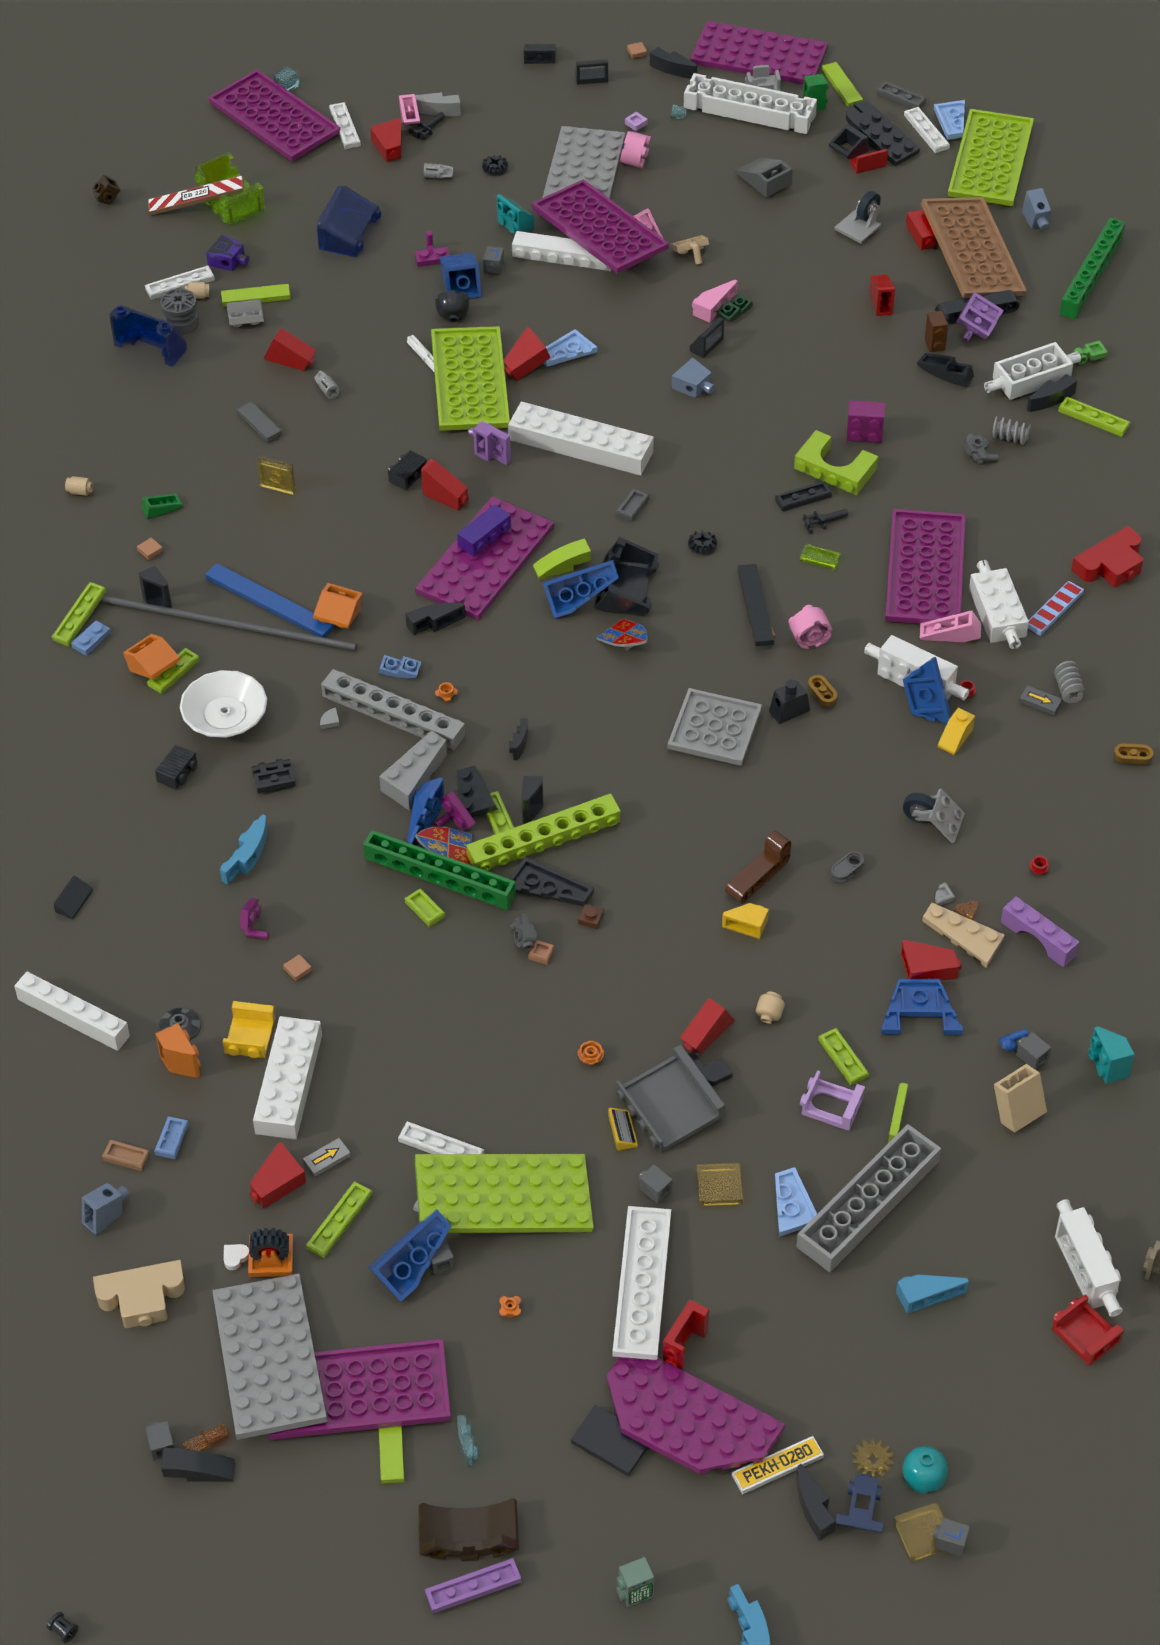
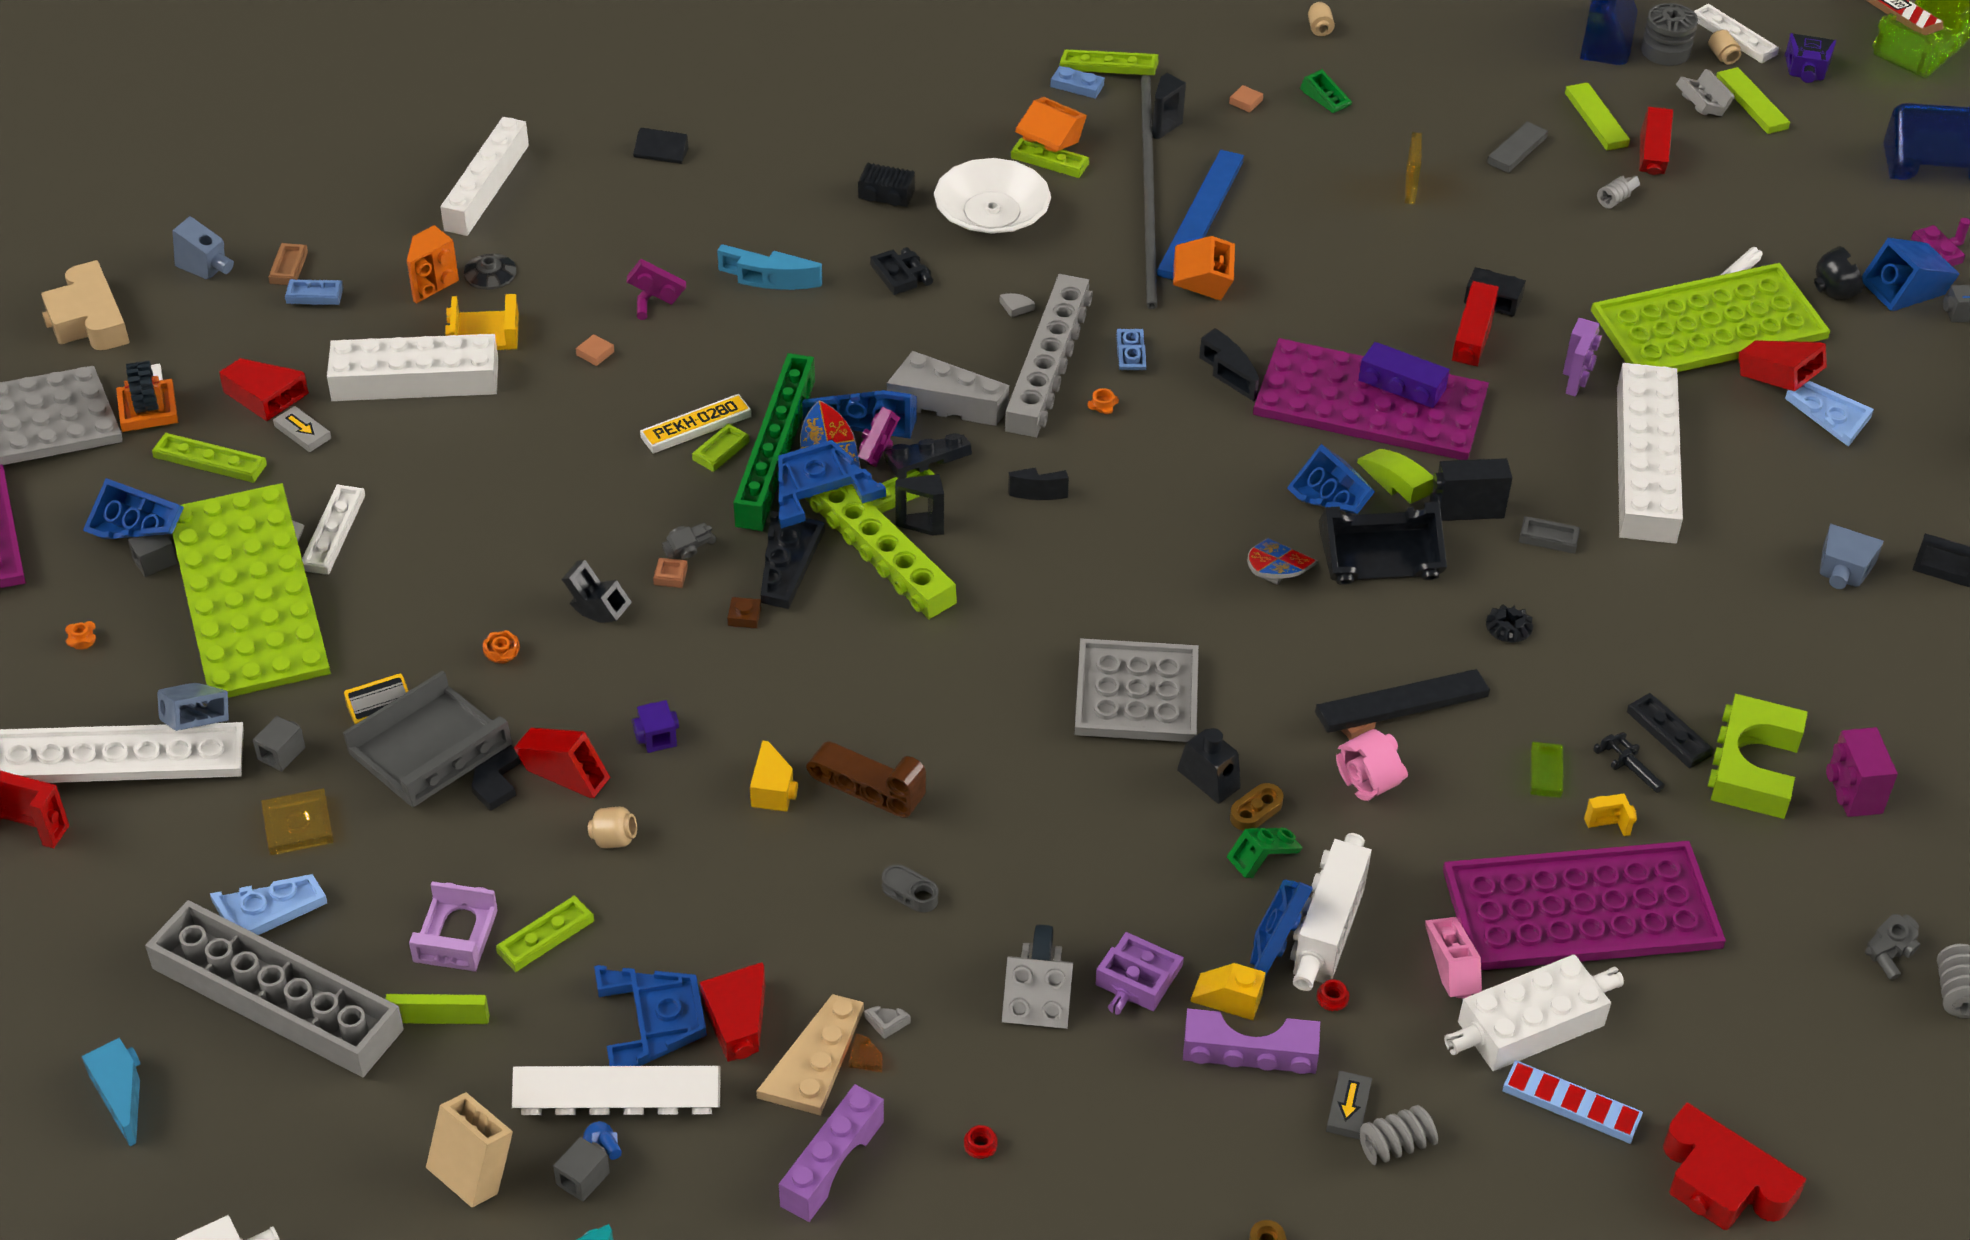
camera: 75 degrees right, 5 degrees down
(242, 374) = (1597, 116): none -> lime tile
(396, 918) = (695, 423): none -> tile
(490, 847) = (817, 471): none -> blue wing
(563, 991) = (593, 598): none -> black brick
(597, 524) = (1472, 489): none -> black brick
(610, 1233) = (183, 707): none -> sand blue torso
(686, 974) = (656, 726): none -> dark purple brick
(858, 694) = (1255, 846): none -> green bracket
(865, 531) = (1611, 810): none -> yellow bracket
(936, 770) = (1137, 972): none -> medium lavender plate
(978, 1027) = (616, 1087): none -> white brick
(989, 746) = (1288, 1049): none -> medium lavender arch

